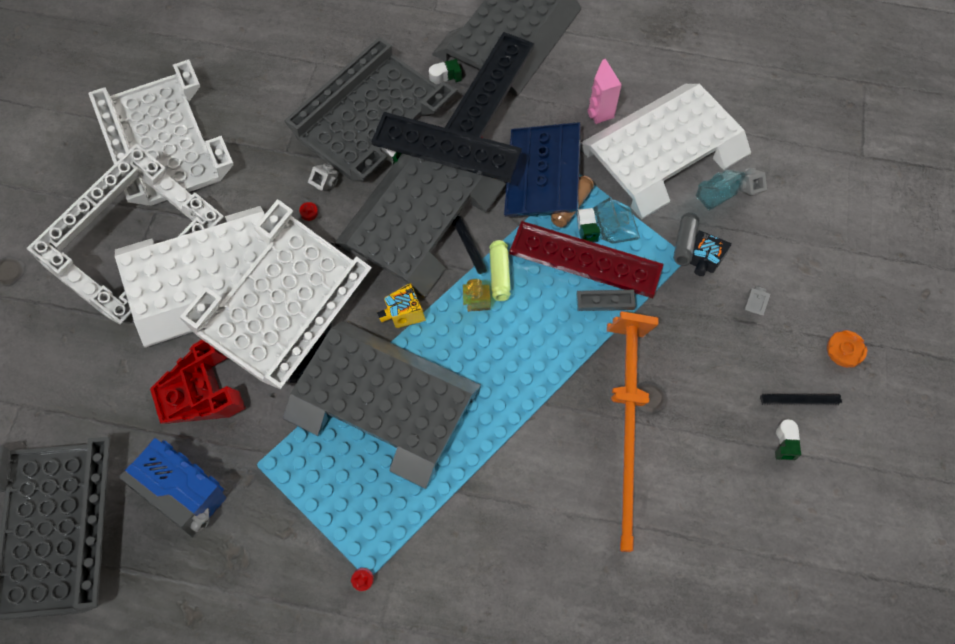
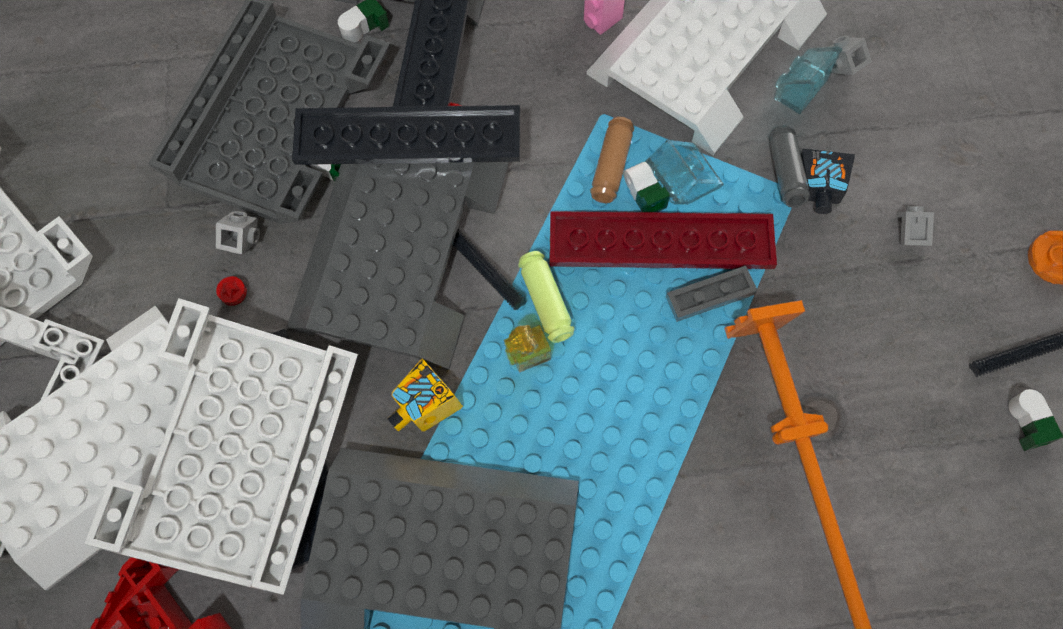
camera: 15 degrees left, 5 degrees up
(548, 180) = (570, 138): dark blue piece -> none

